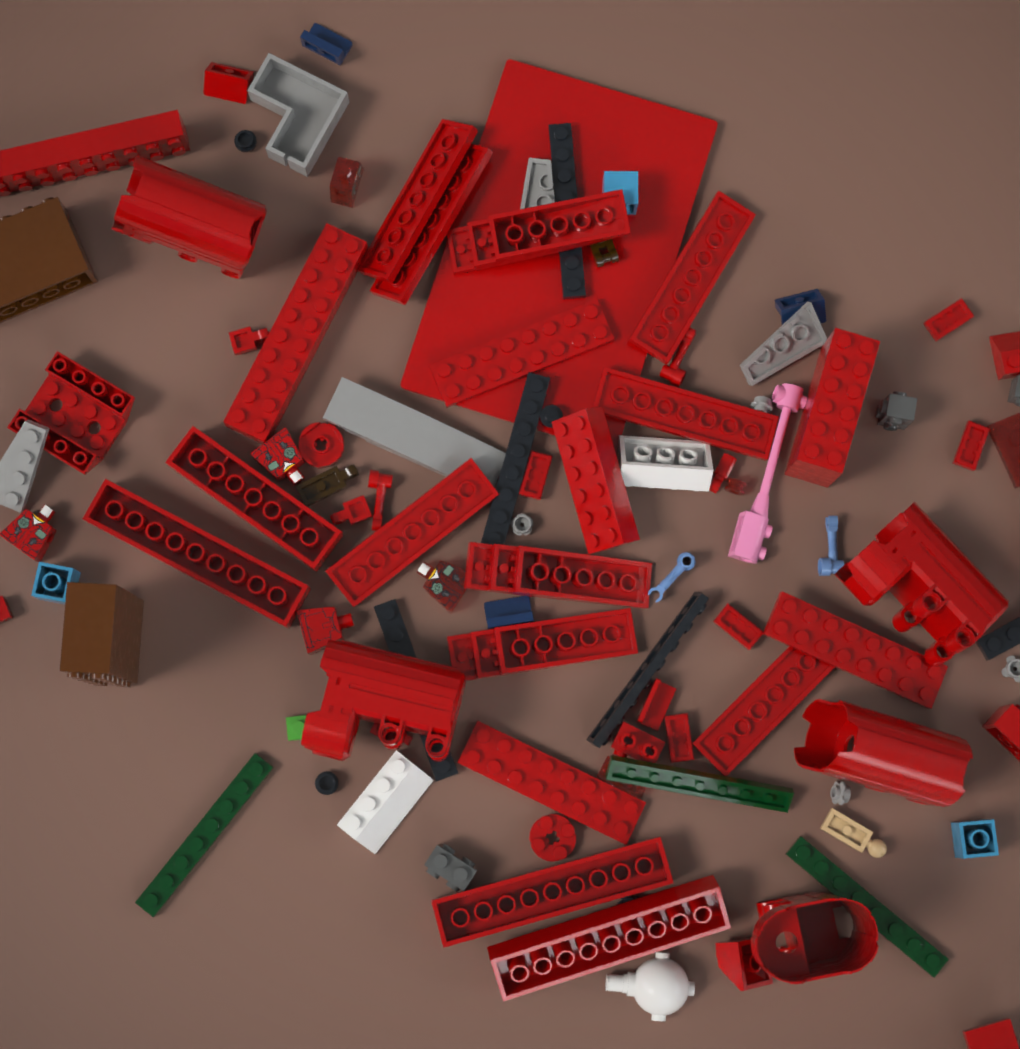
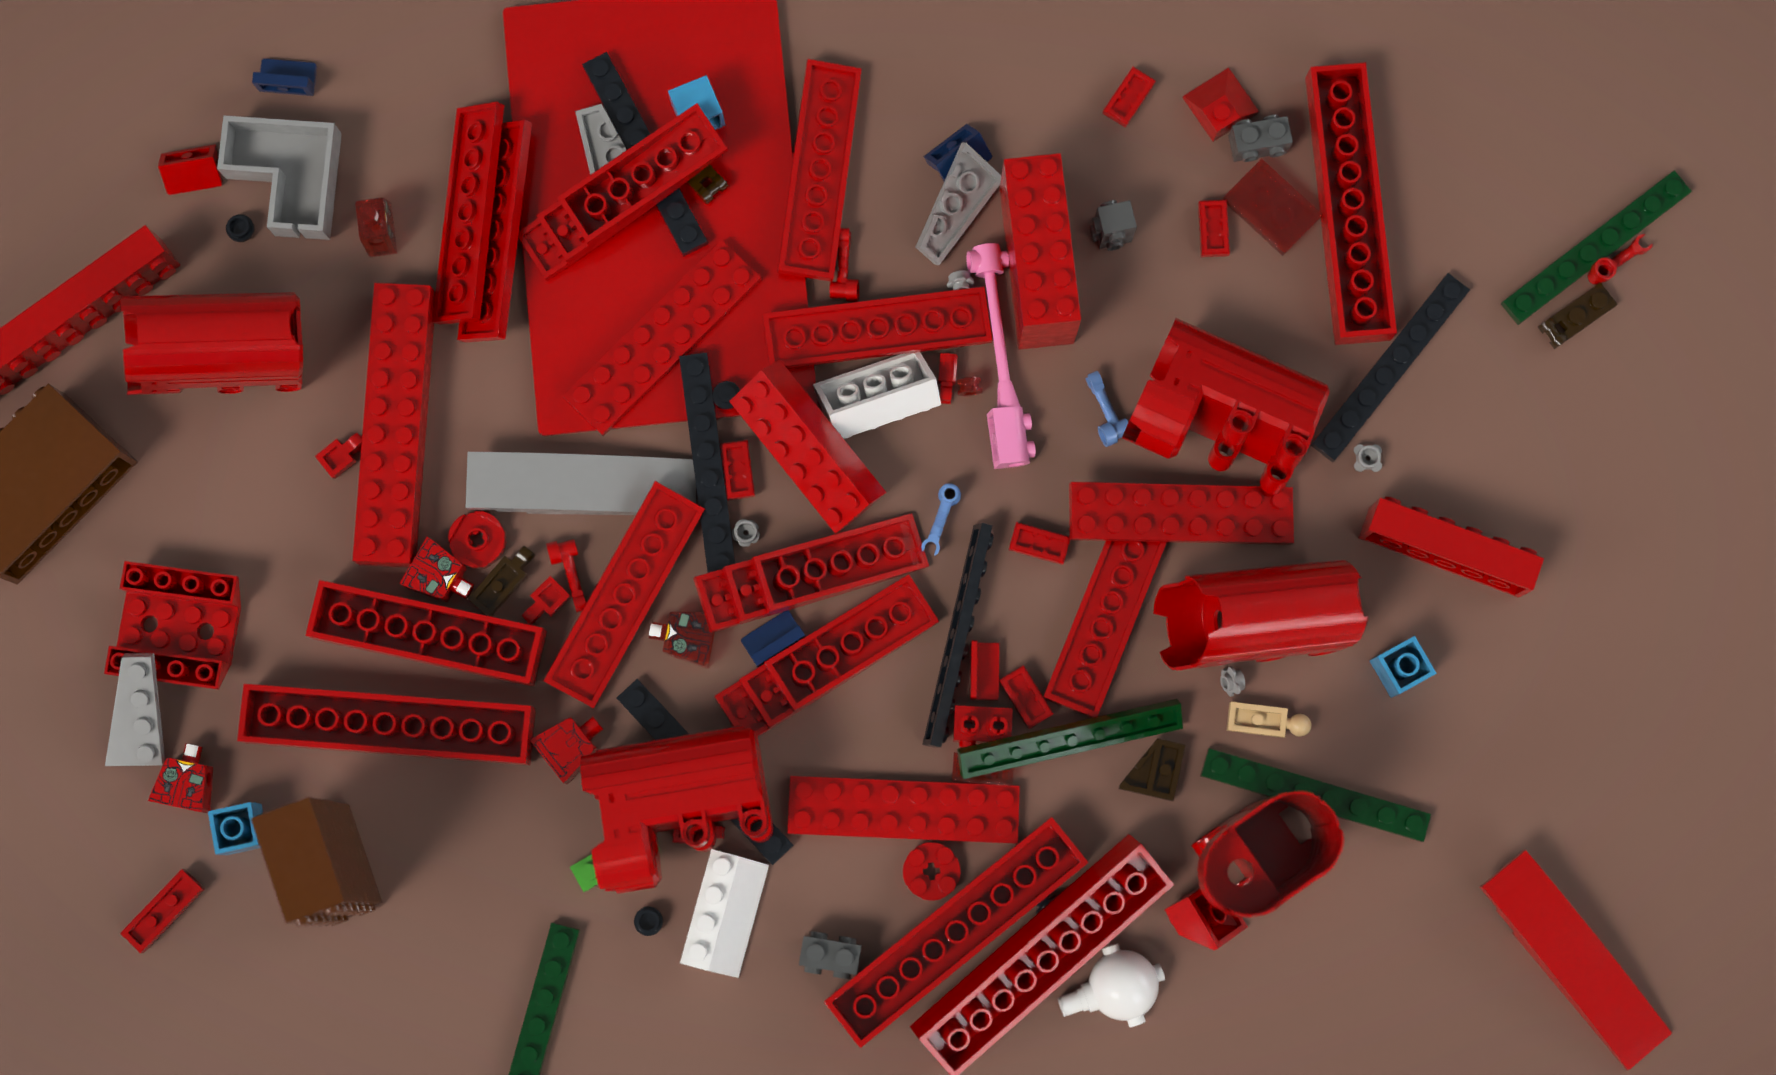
camera: 20 degrees left, 0 degrees up
(754, 836) = (1156, 771): none -> dark brown wing

